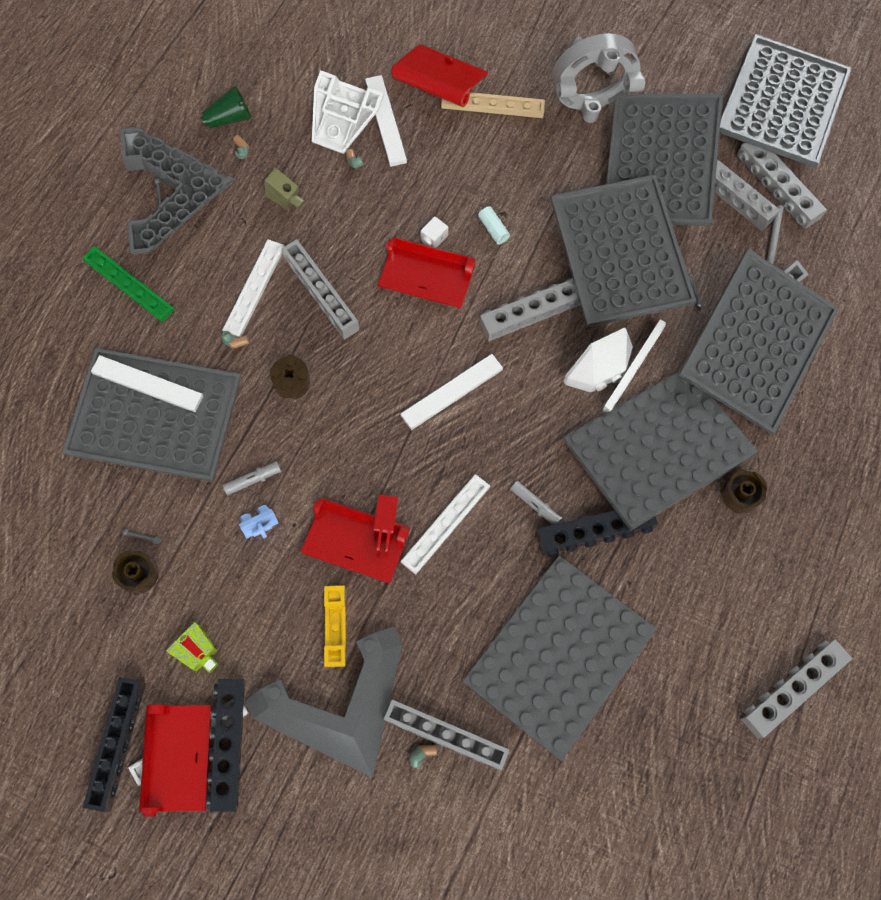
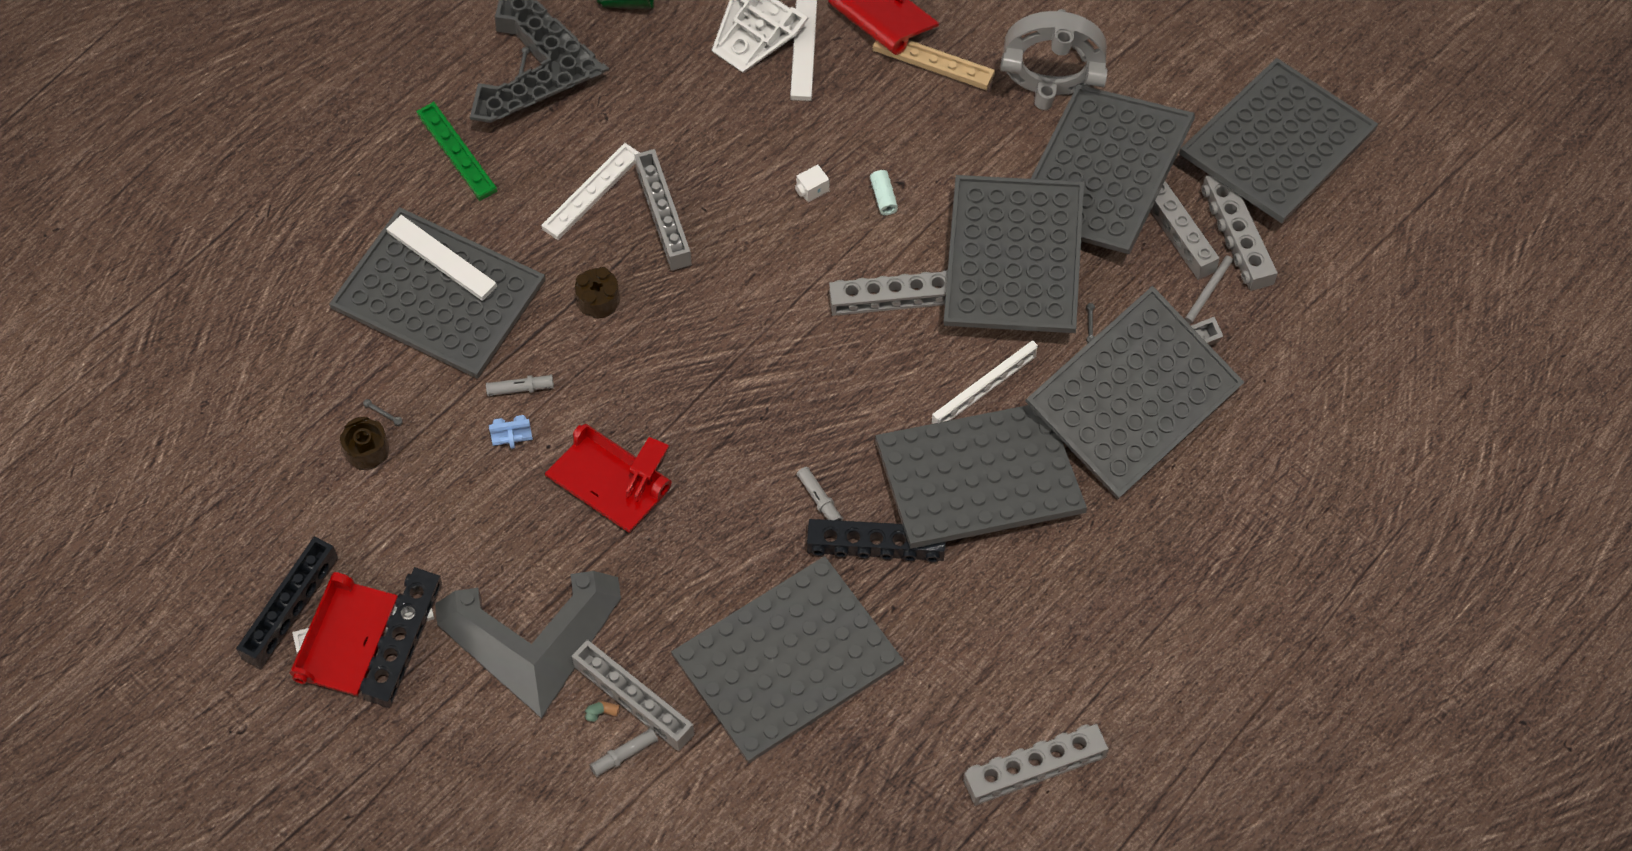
camera: 20 degrees right, 10 degrees down
(194, 649) = (399, 537): lime torso -> none
(232, 341) = (550, 241): arm -> none
(242, 148) = (632, 37): arm -> none
(282, 190) = (658, 94): olive torso -> none
(335, 626) = (556, 556): yellow slope -> none
(352, 160) = (750, 82): sand green arm -> none
(427, 272) = (789, 223): red door -> none
(445, 524) = (712, 490): white tile -> none
(448, 796) = (616, 756): none -> light grey pin
(451, 392) = (770, 356): white tile -> none
(601, 363) = (945, 364): white wedge -> none
(746, 481) = (1057, 547): dark brown brick -> none

